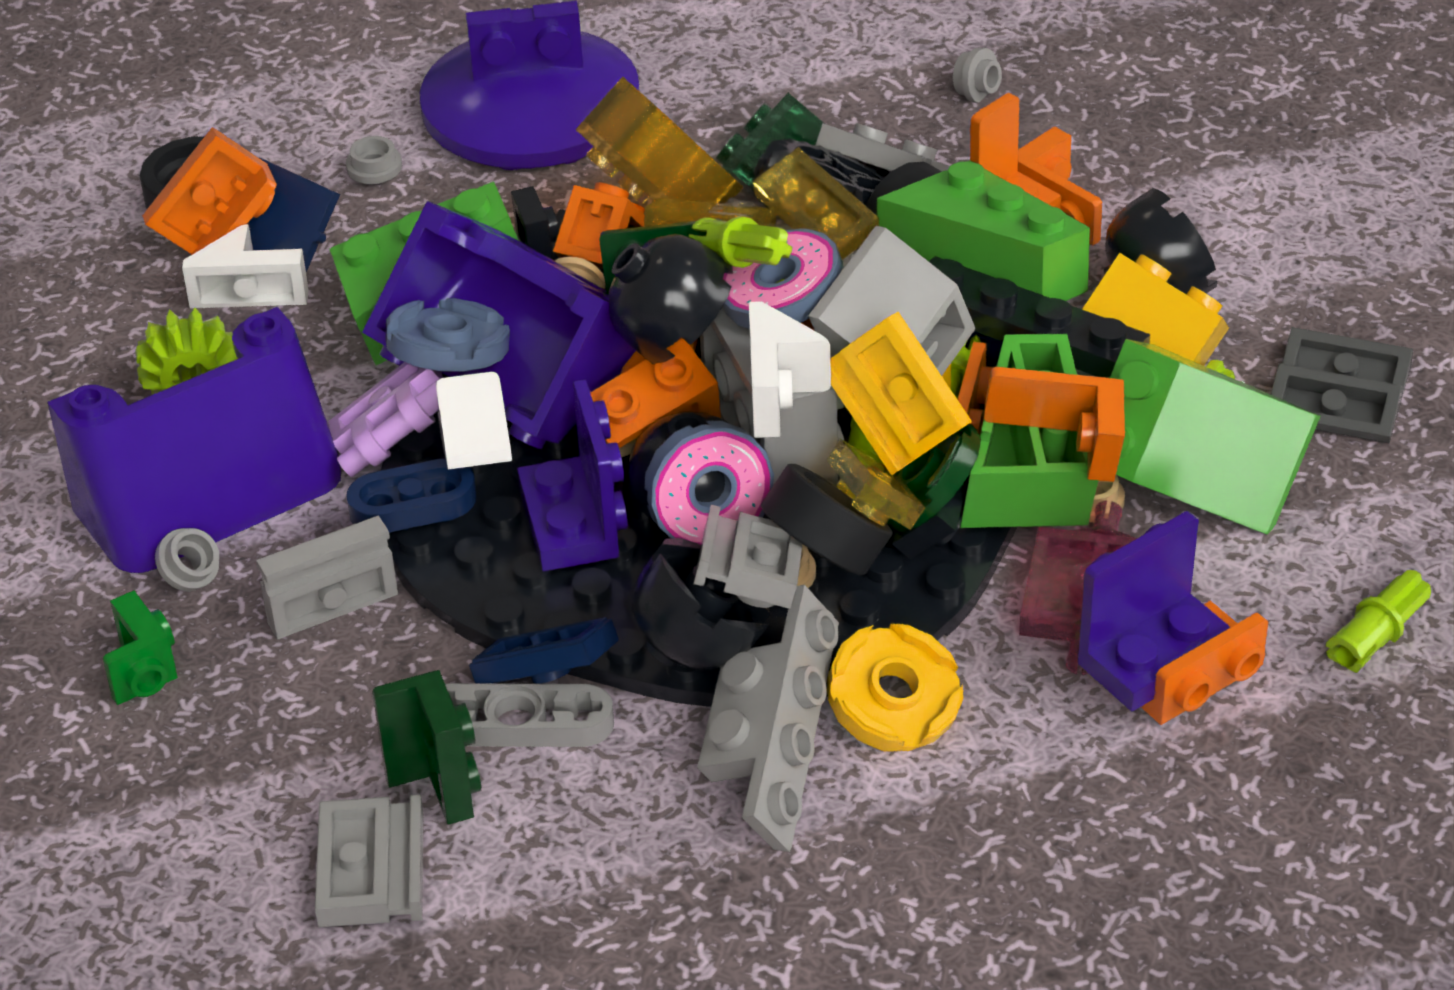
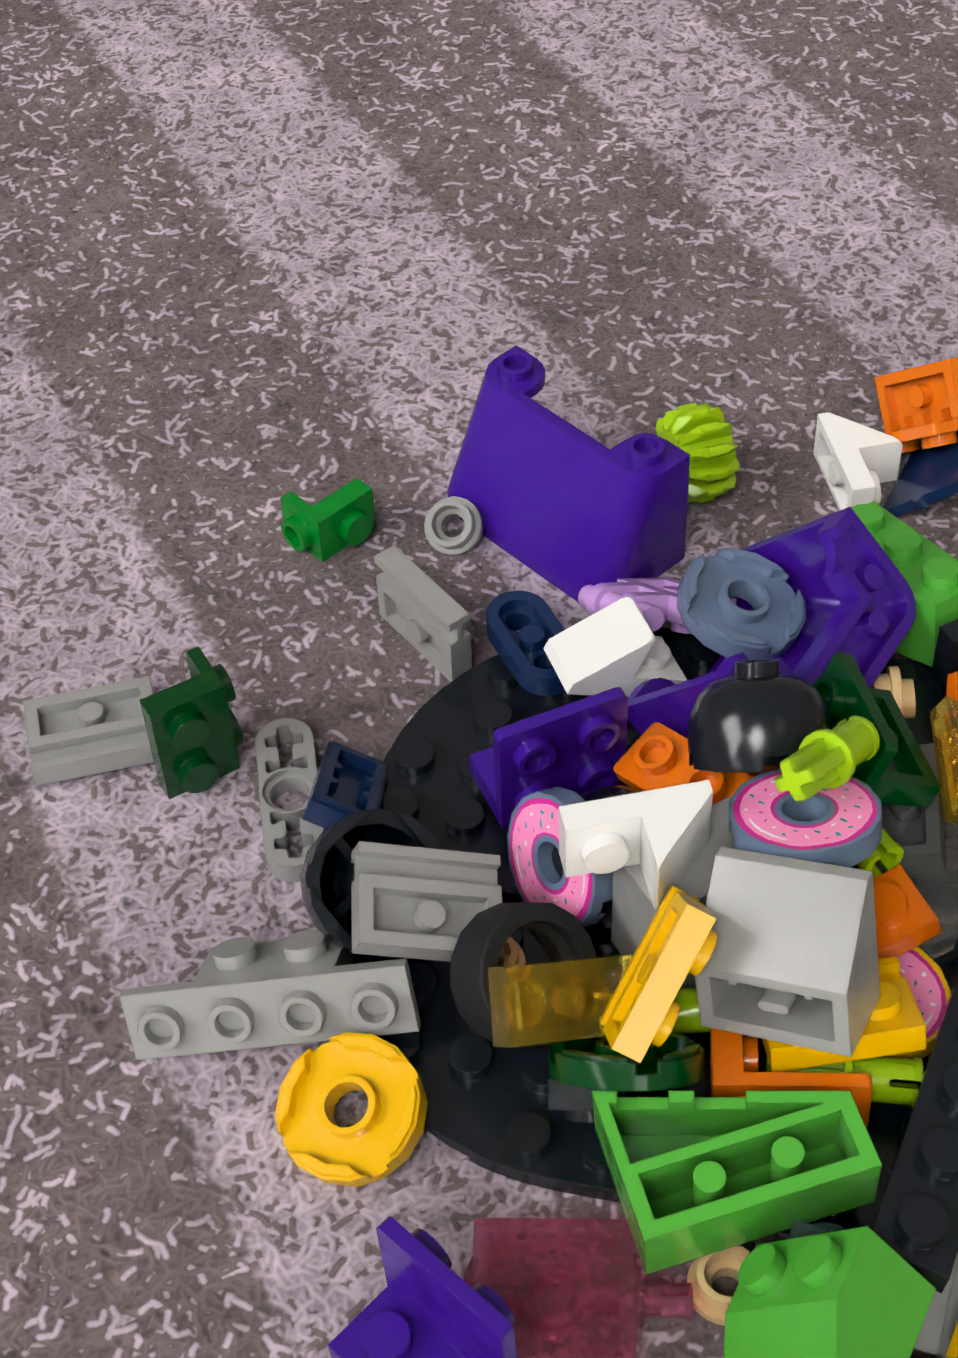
camera: 80 degrees right, 5 degrees up
(1067, 403) = (684, 1217): orange bracket -> none

